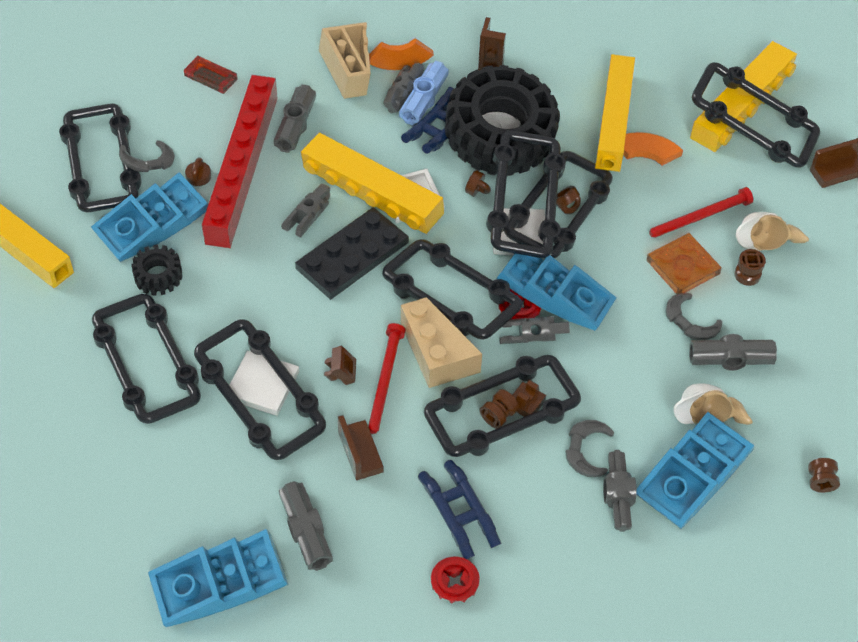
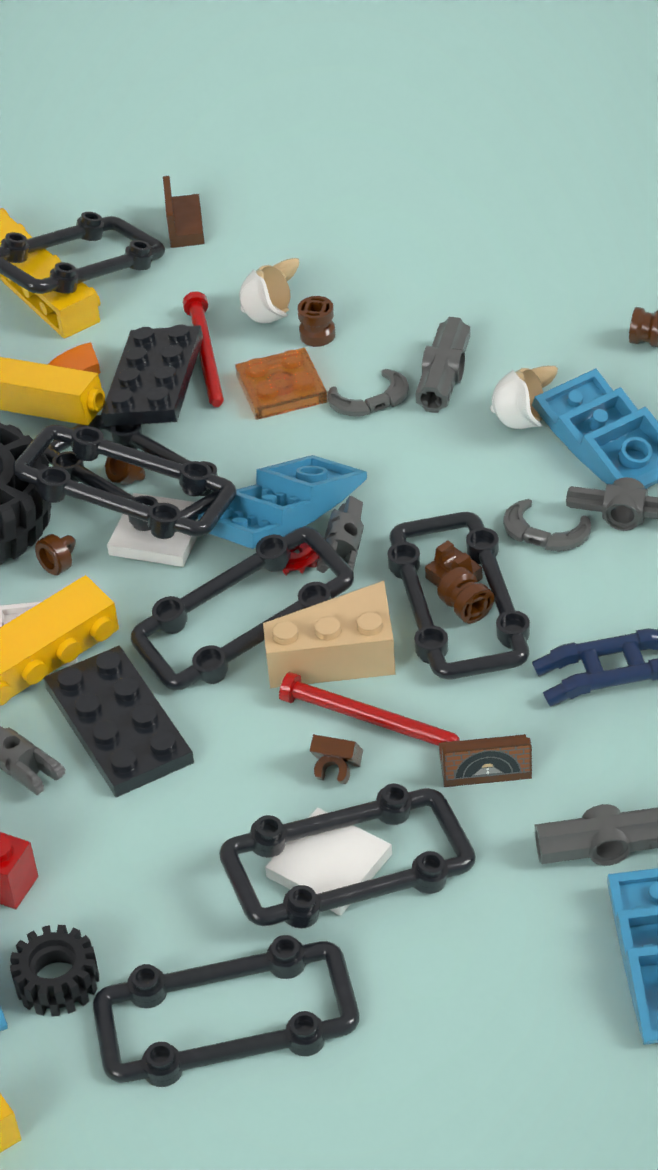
camera: 70 degrees left, 10 degrees down
(653, 188) = (152, 376): none -> black plate

